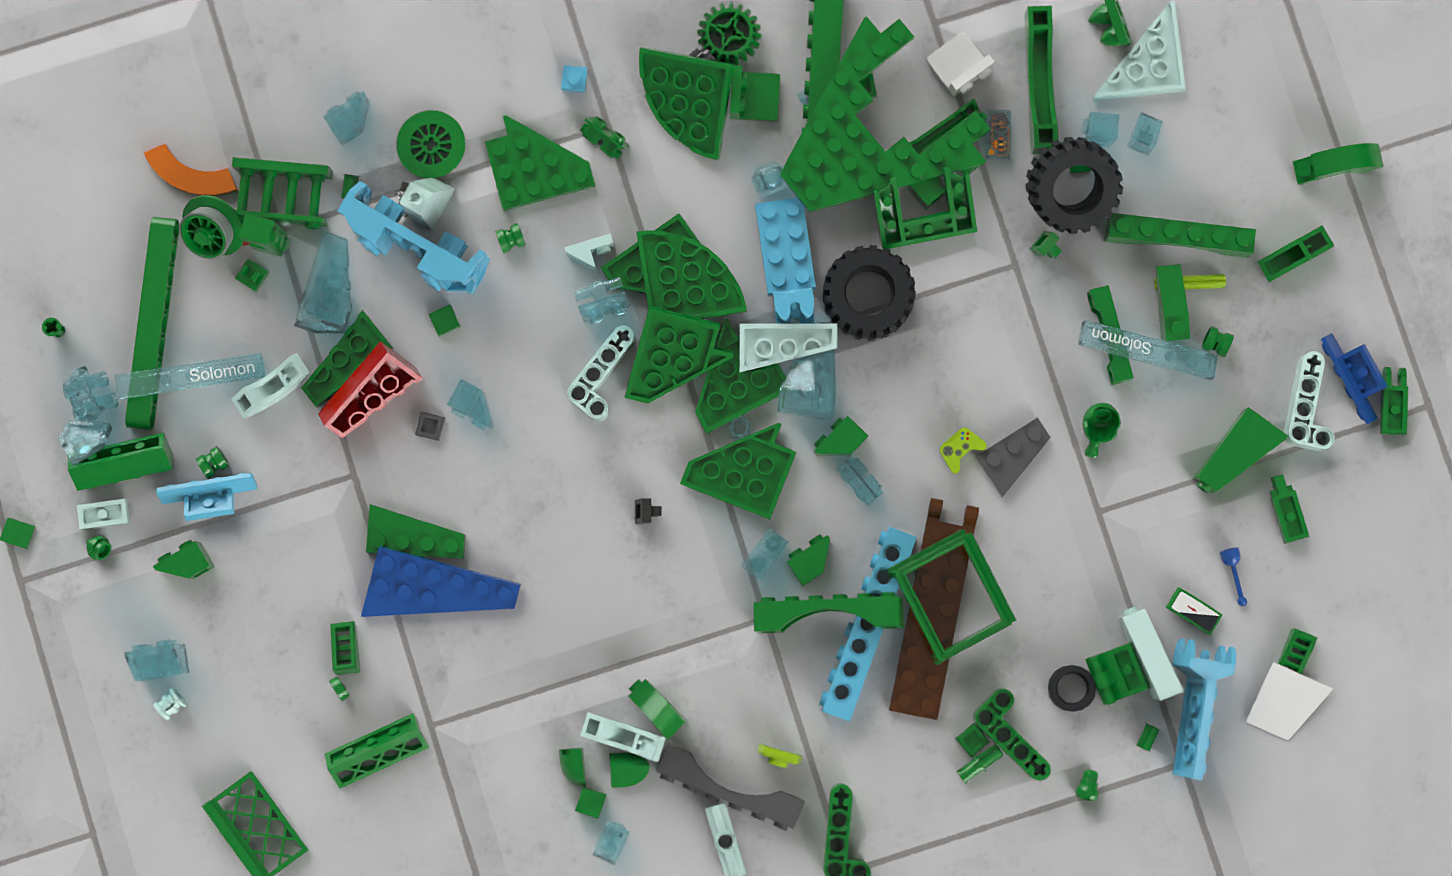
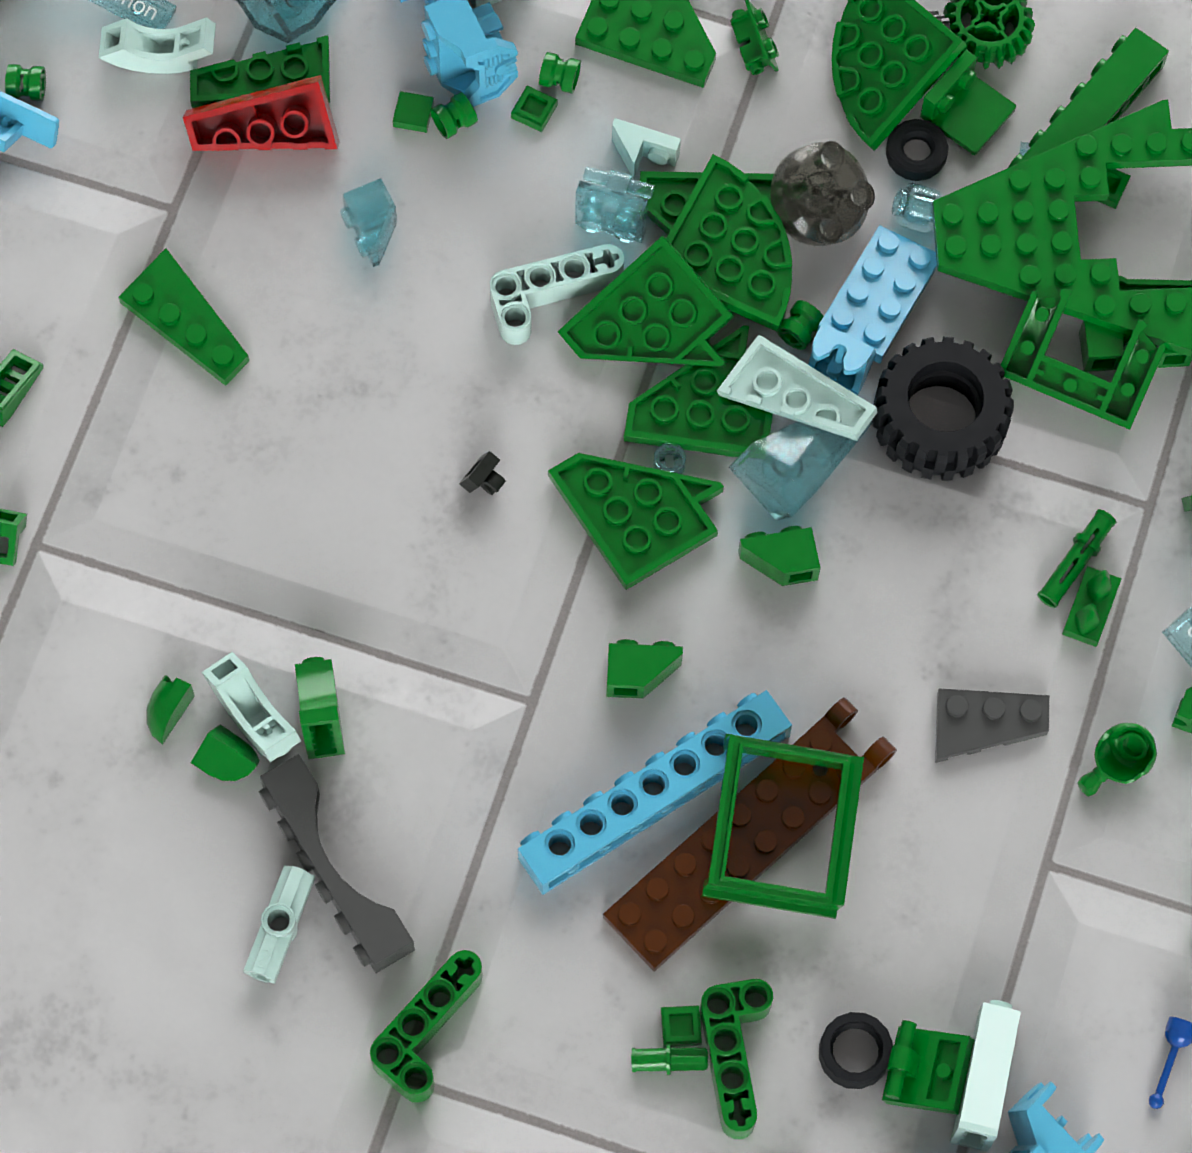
camera: 30 degrees right, 15 degrees down
(420, 585) = (152, 377): blue wing -> none
(430, 426) = (304, 213): dark grey tile -> none
(470, 307) = (453, 115): none -> green wheel
(510, 269) = (534, 108): none -> green tile
(590, 802) = (152, 763): green slope -> none
(611, 842) = (140, 826): clear light blue bracket -> none
(710, 214) = (818, 193): none -> clear smoke piece
(753, 151) = (920, 130): none -> black tyre
(755, 296) = (798, 328): none -> green wheel
(764, 554) = (586, 620): clear light blue slope -> none
(778, 616) = (553, 703): green arch -> none
(779, 757) = (425, 870): lime piece -> none
(865, 489) = (771, 602): clear light blue hinge -> none
(958, 446) = (923, 662): lime piece -> none
(998, 326) = (1100, 527): none -> green pin
(1024, 348) = (1091, 606): none -> green tile
(1194, 611) = (1084, 1067): slope -> none

